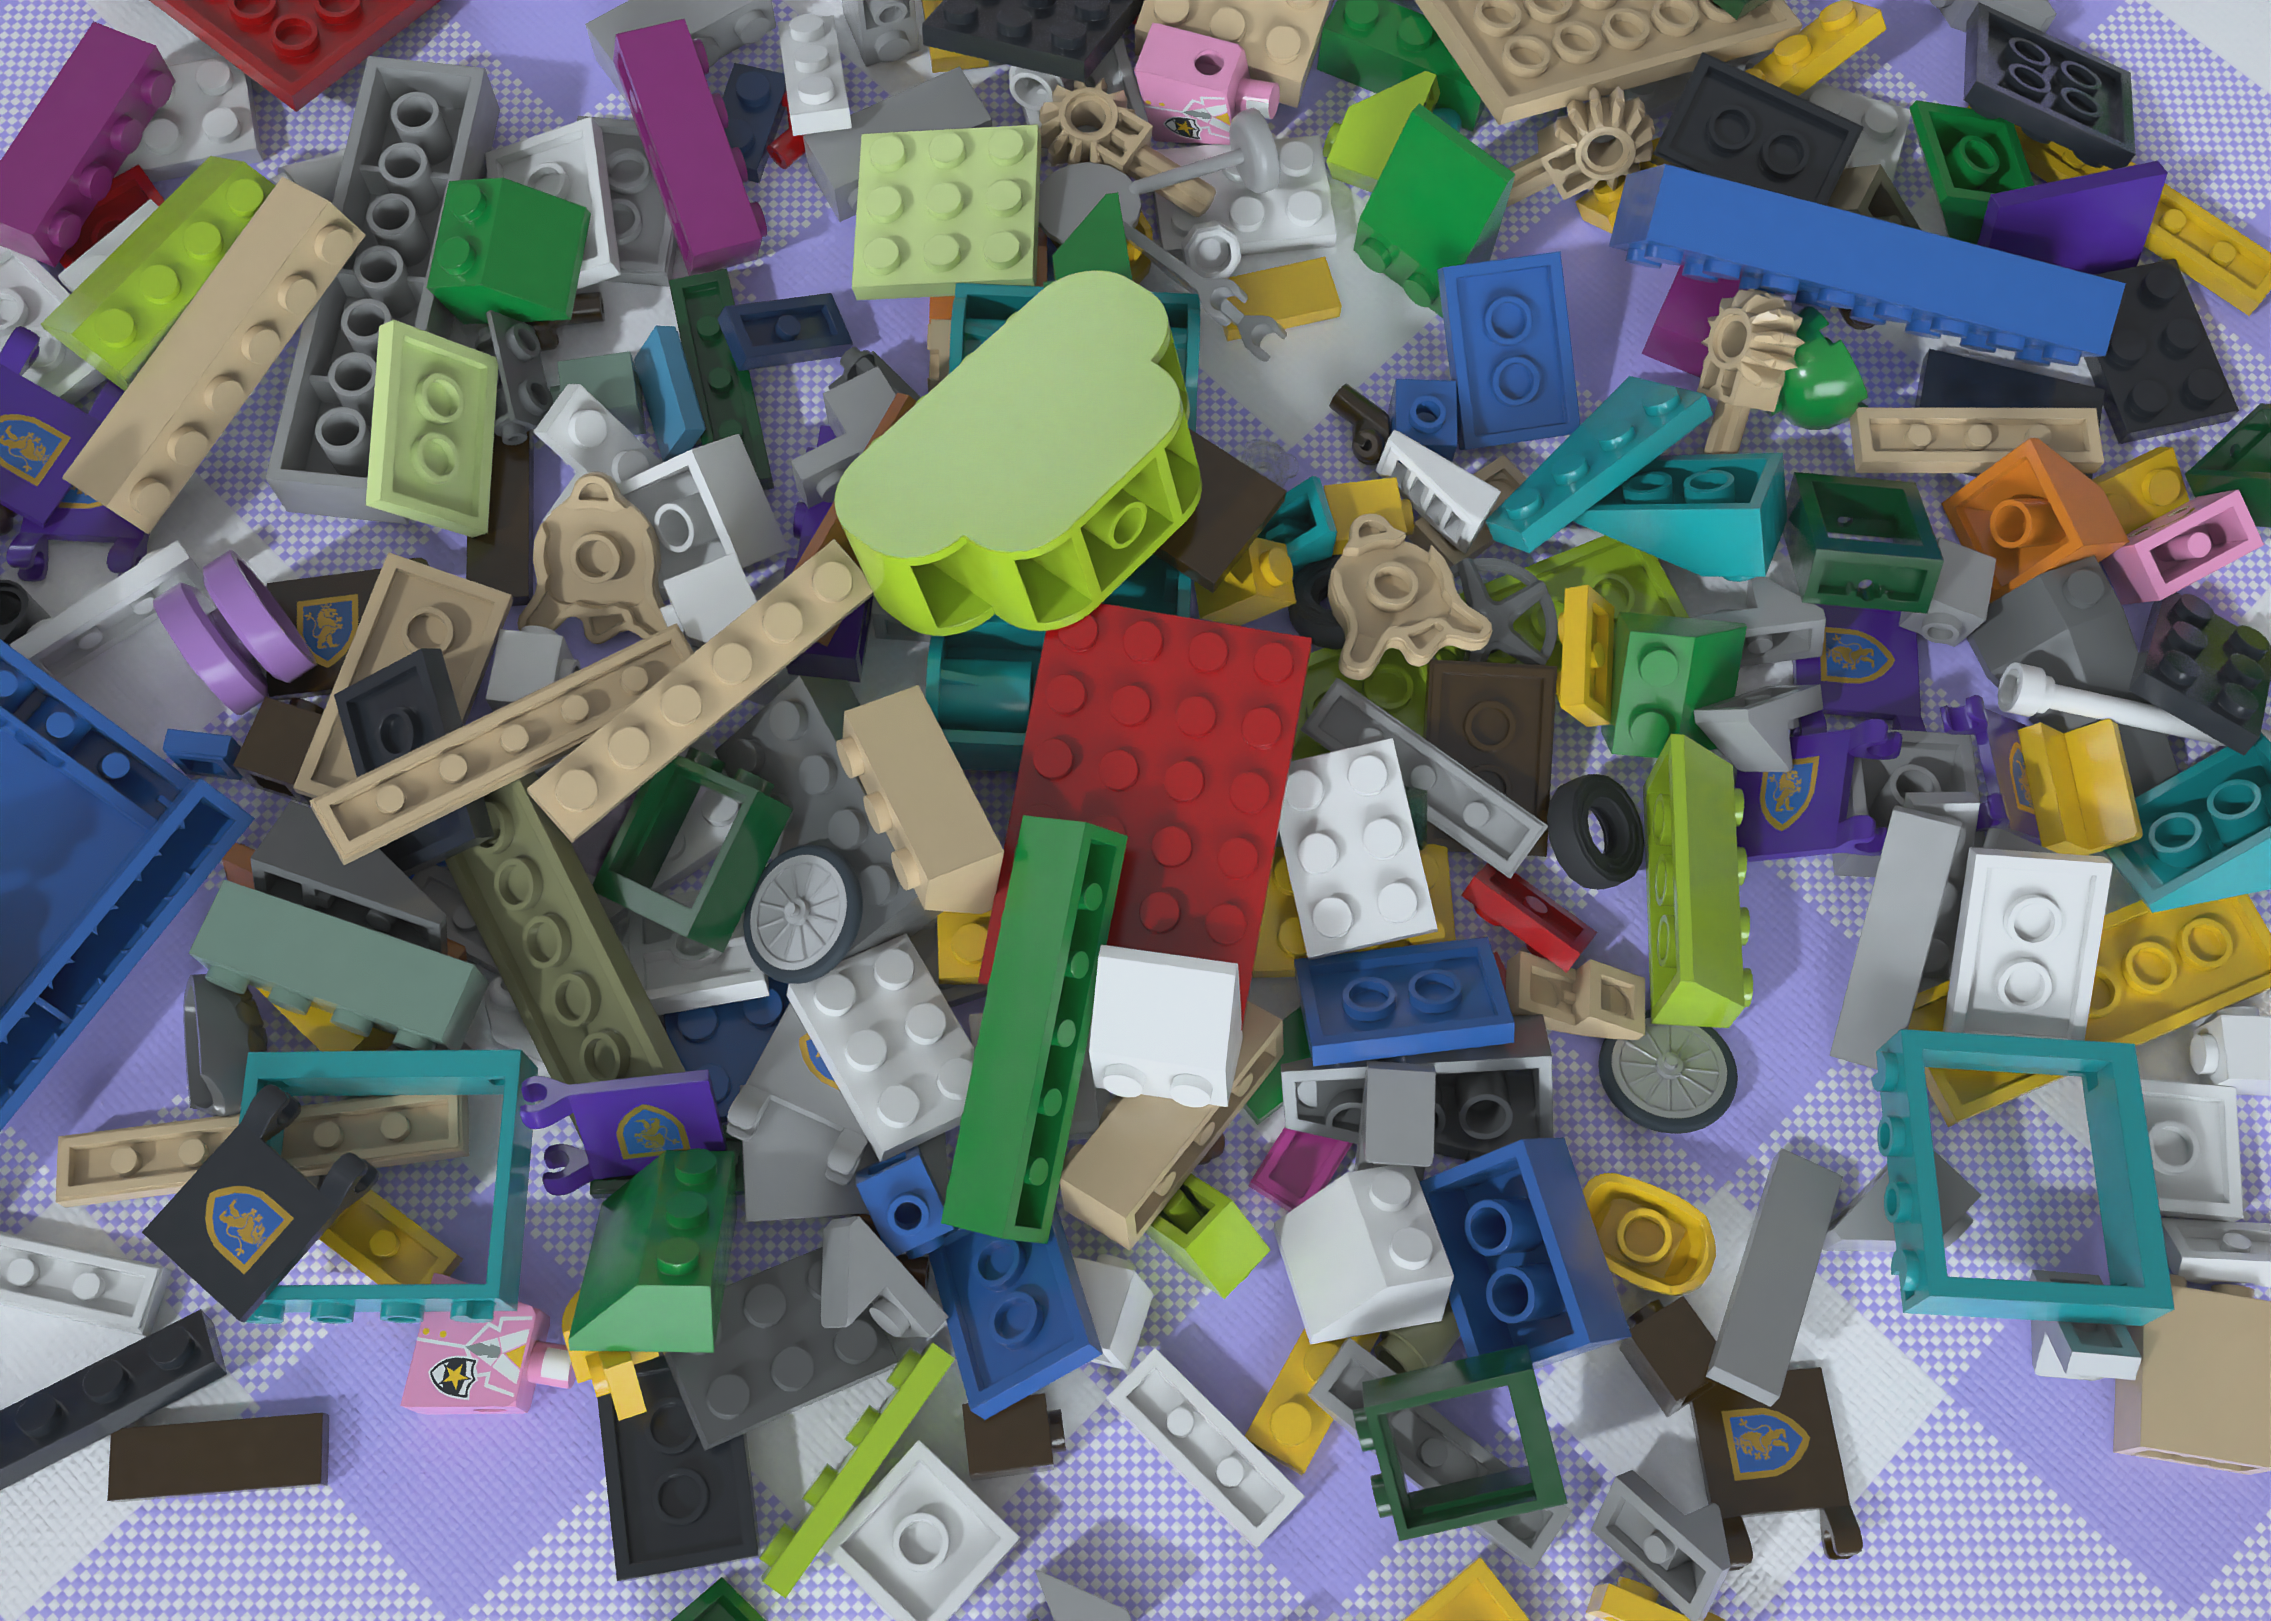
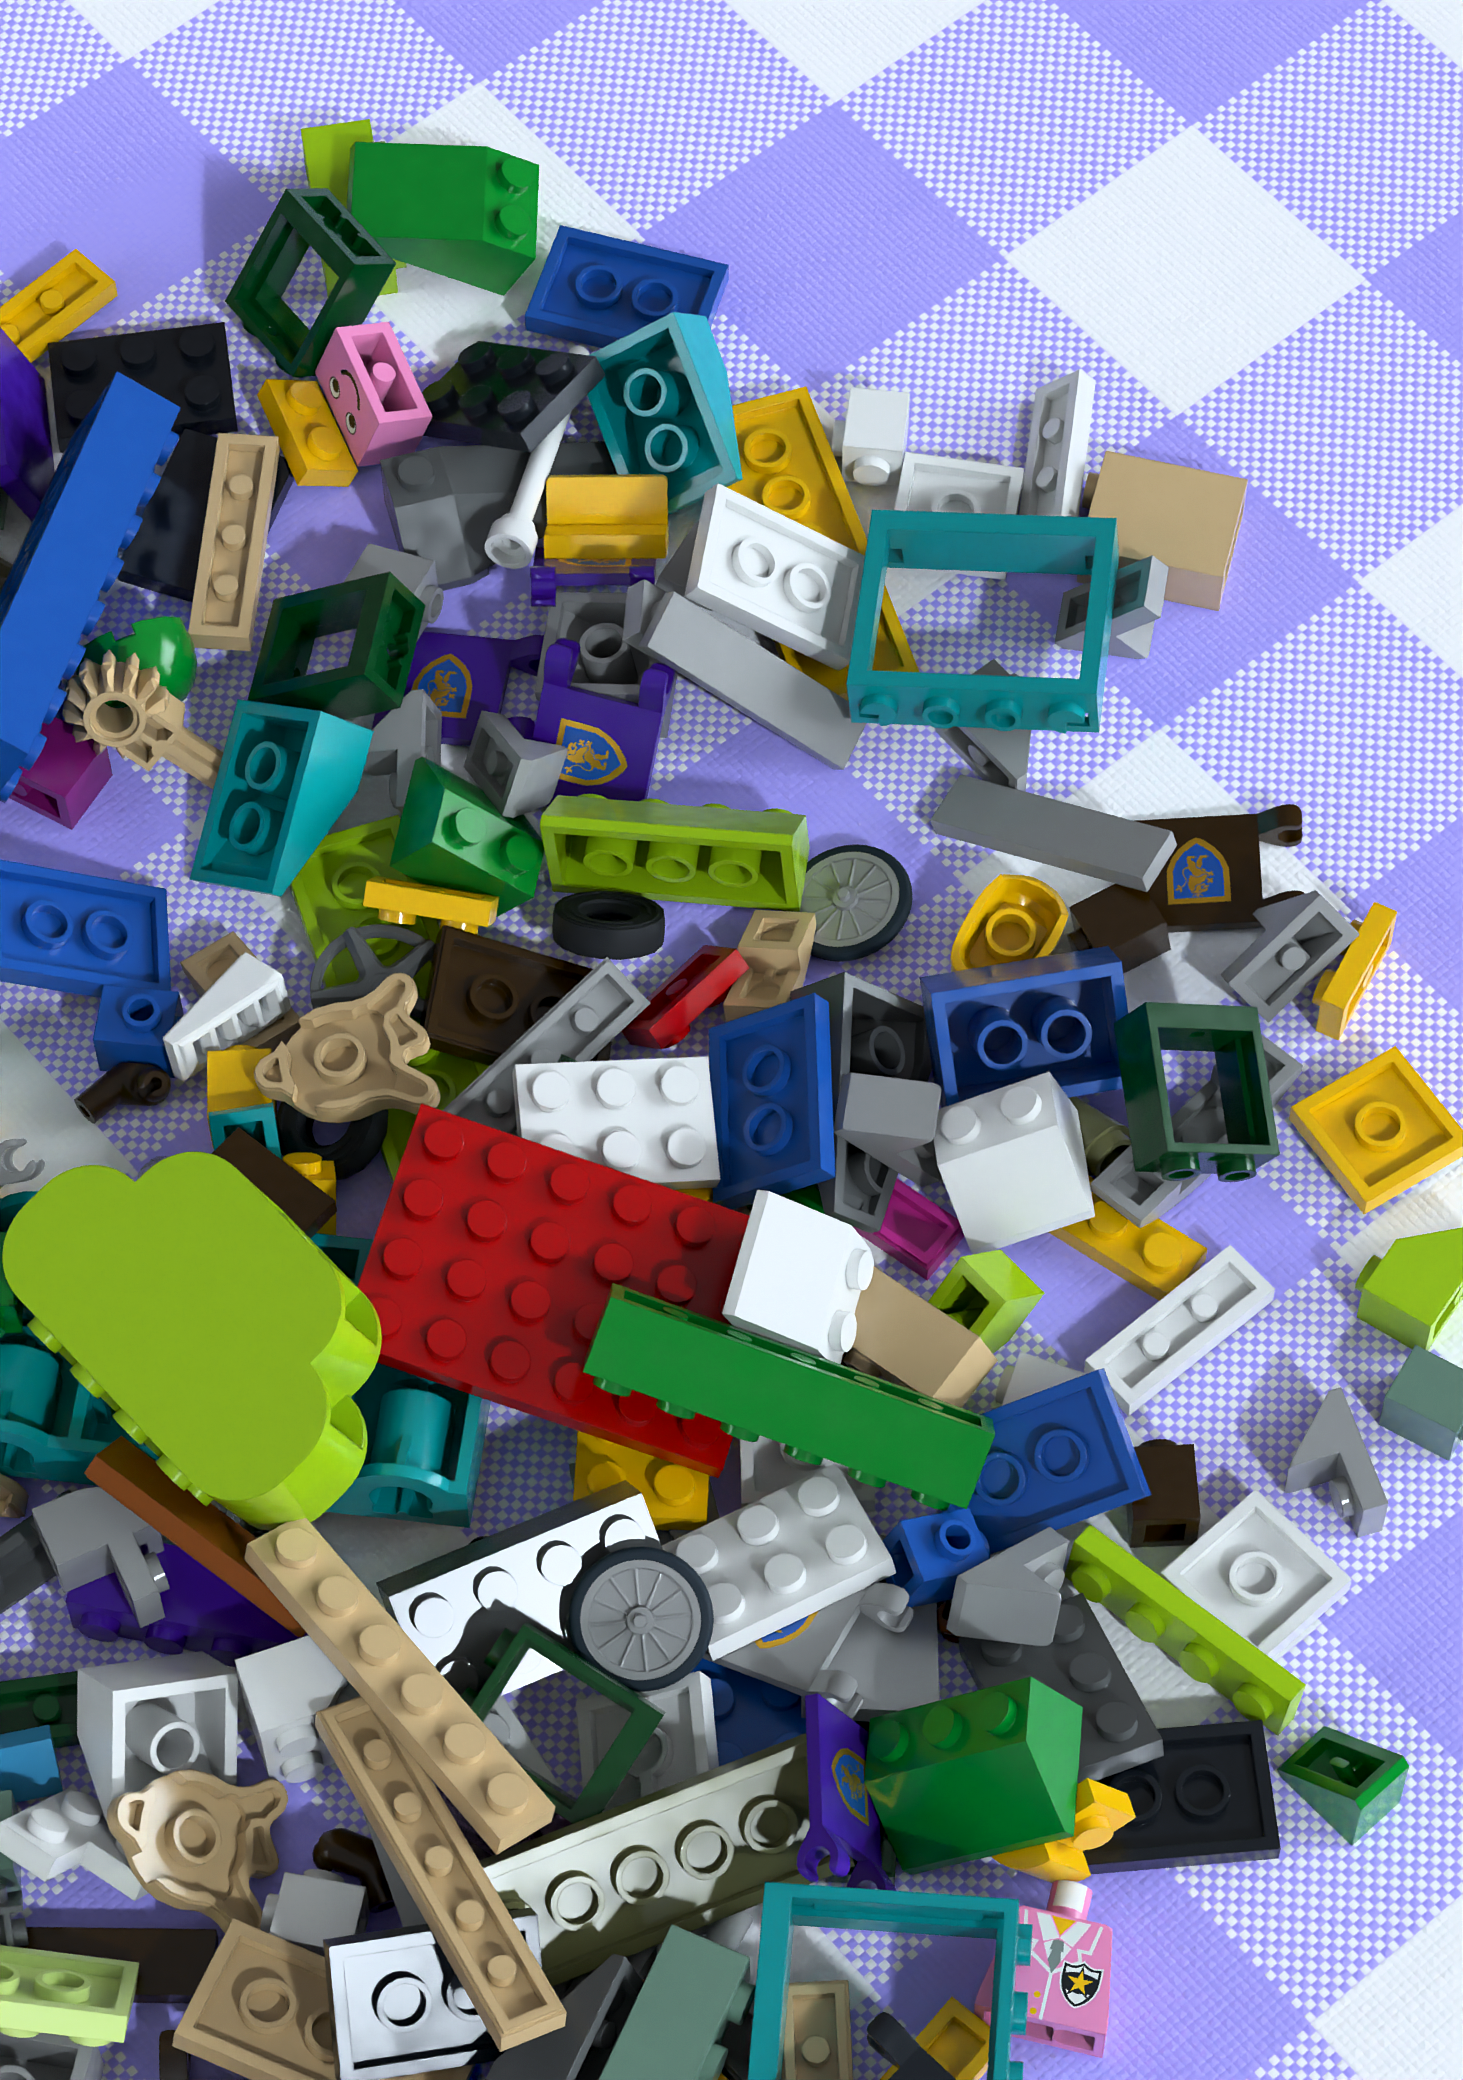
camera: 80 degrees left, 10 degrees down
(922, 803) = (545, 1474): tan slope -> none
(1600, 455) = (207, 863): teal wing -> none
(2033, 516) = (328, 508): orange slope -> none

